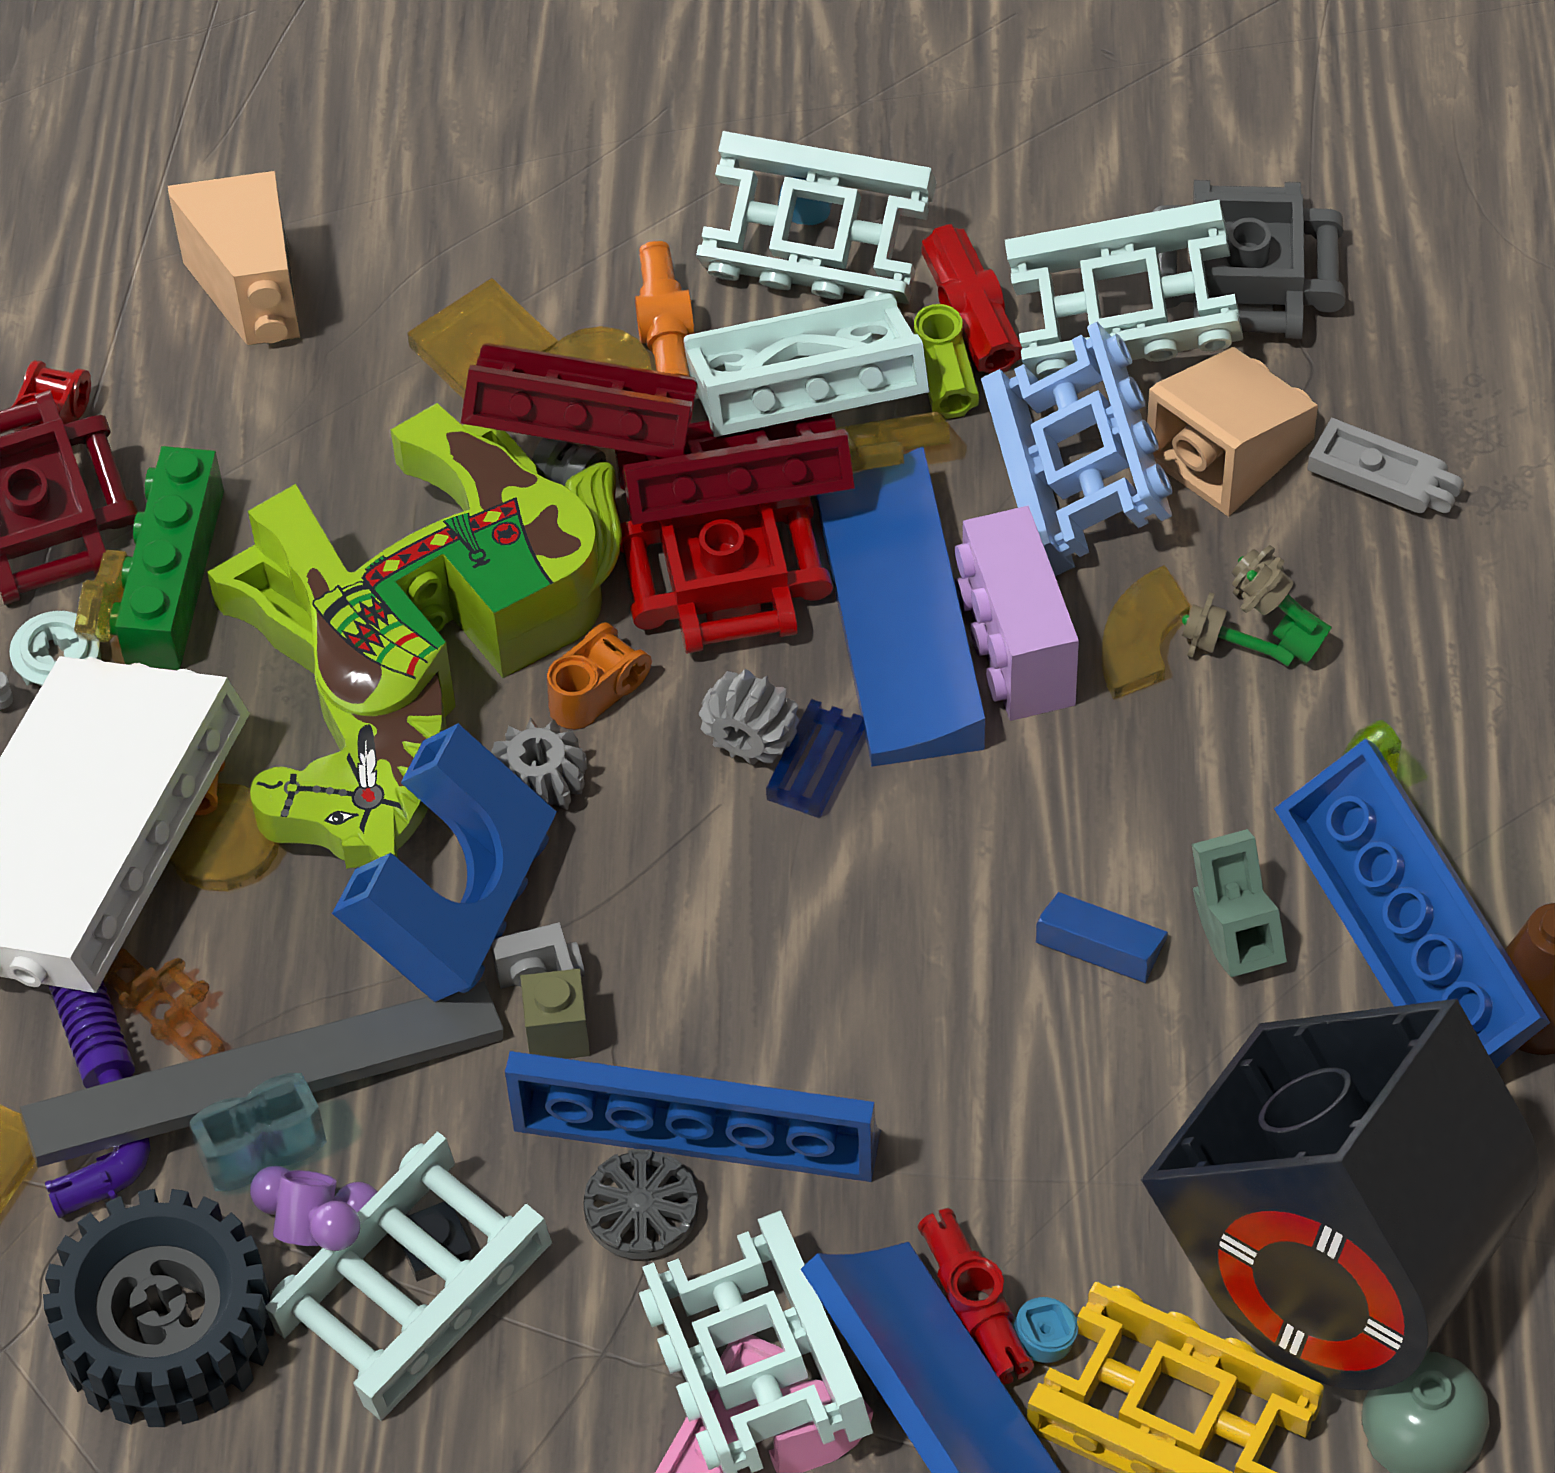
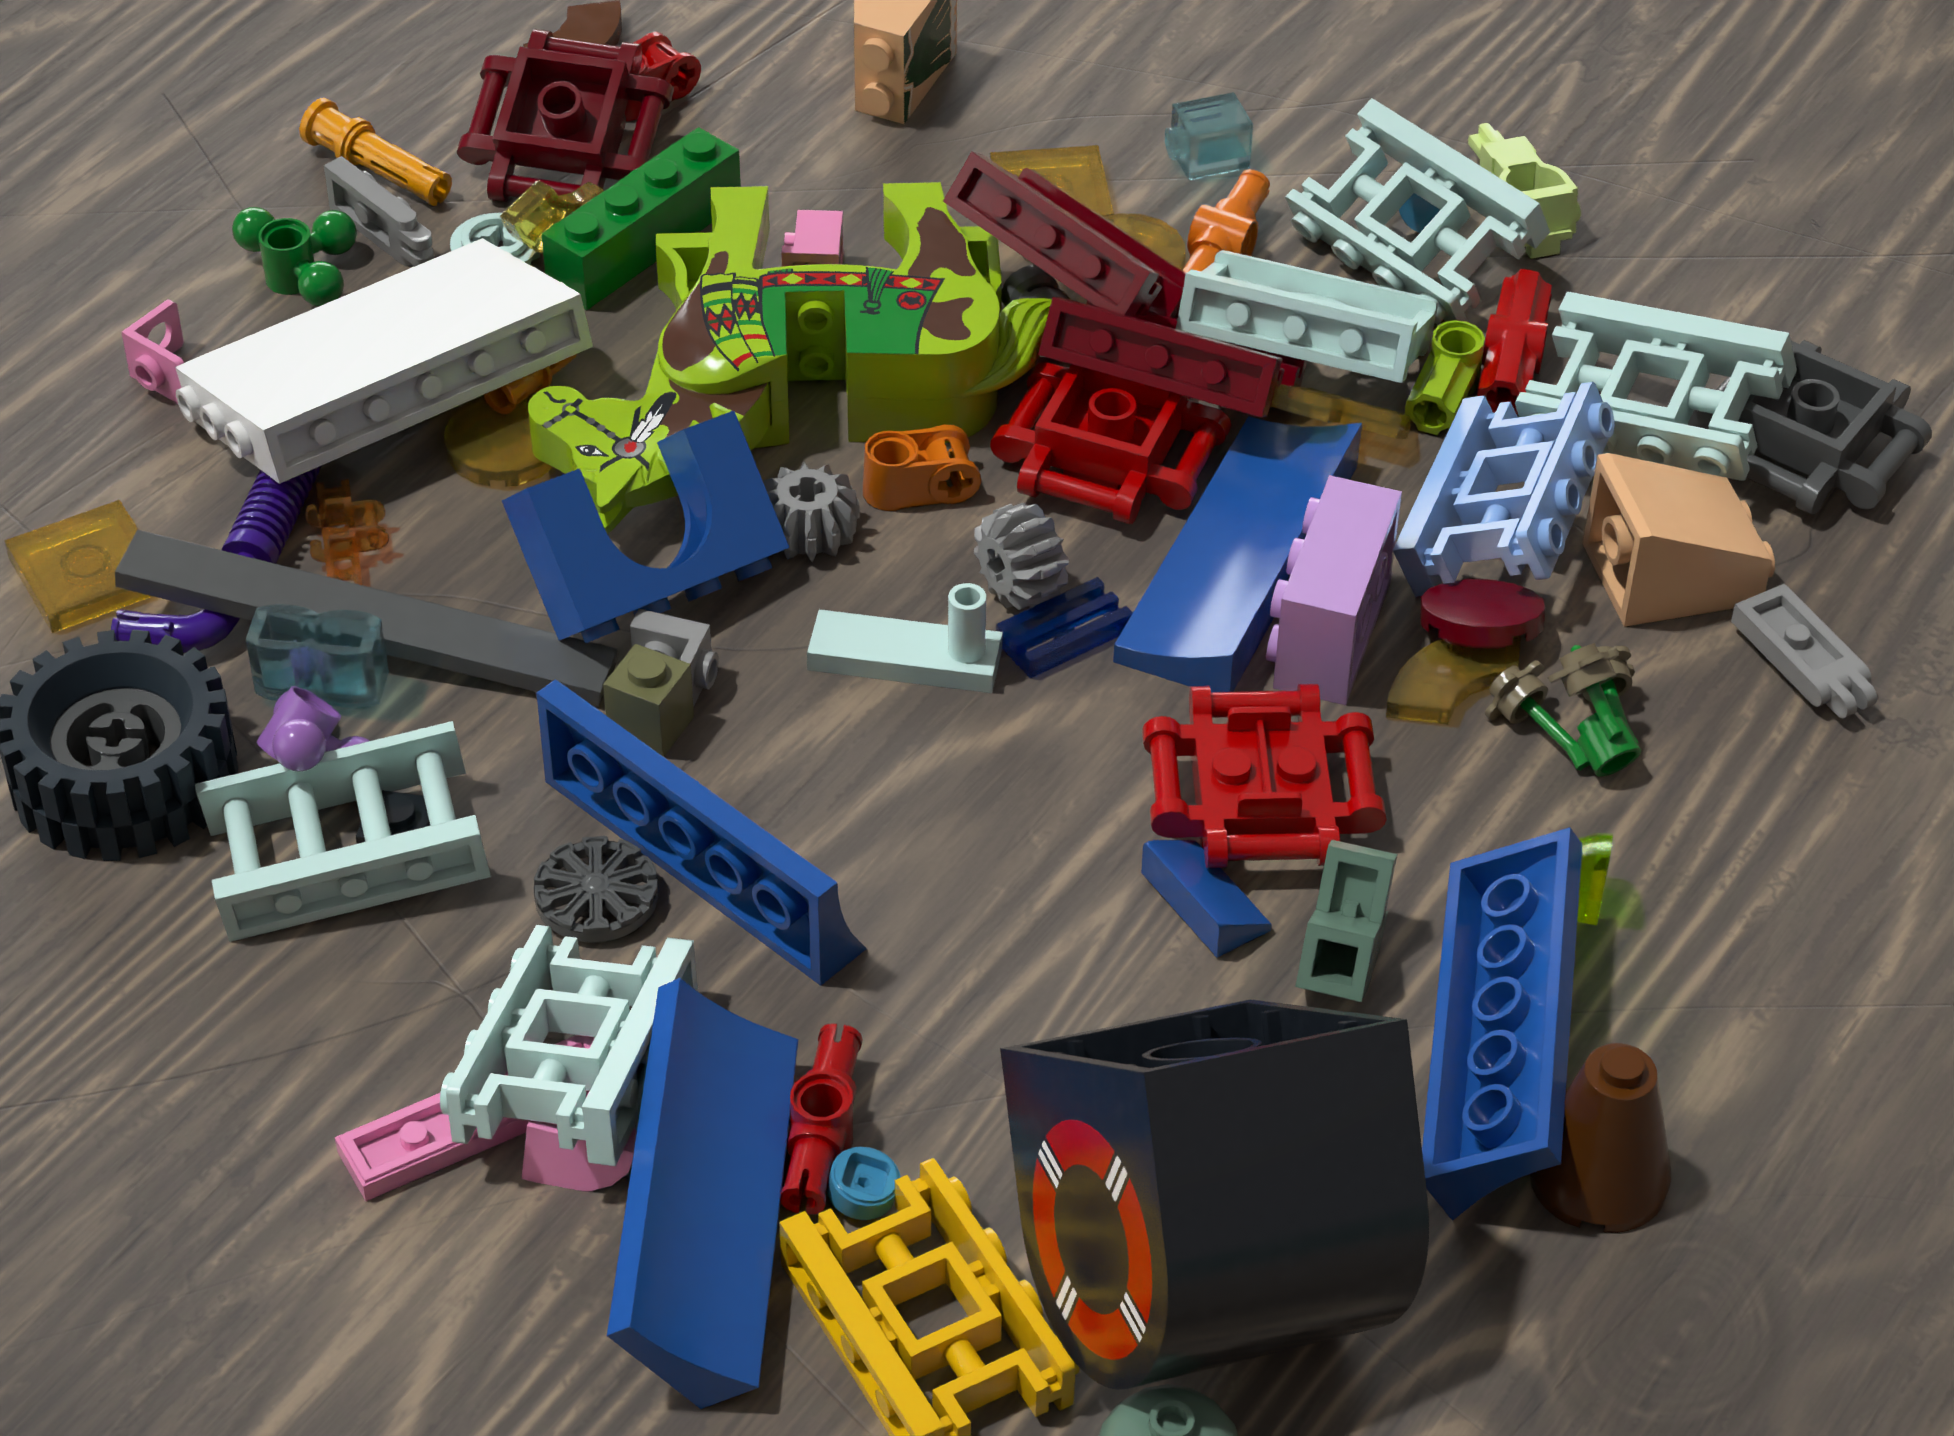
camera: 30 degrees right, 10 degrees down
(345, 513) = (815, 240): none -> bright pink brick
(580, 221) = (1210, 136): none -> clear light blue brick
(712, 846) = (912, 651): none -> light aqua piece
(858, 130) = (1520, 166): none -> yellowish green piece
(1077, 812) = (1261, 776): none -> red brick
(1130, 568) = (1482, 612): none -> dark red tile

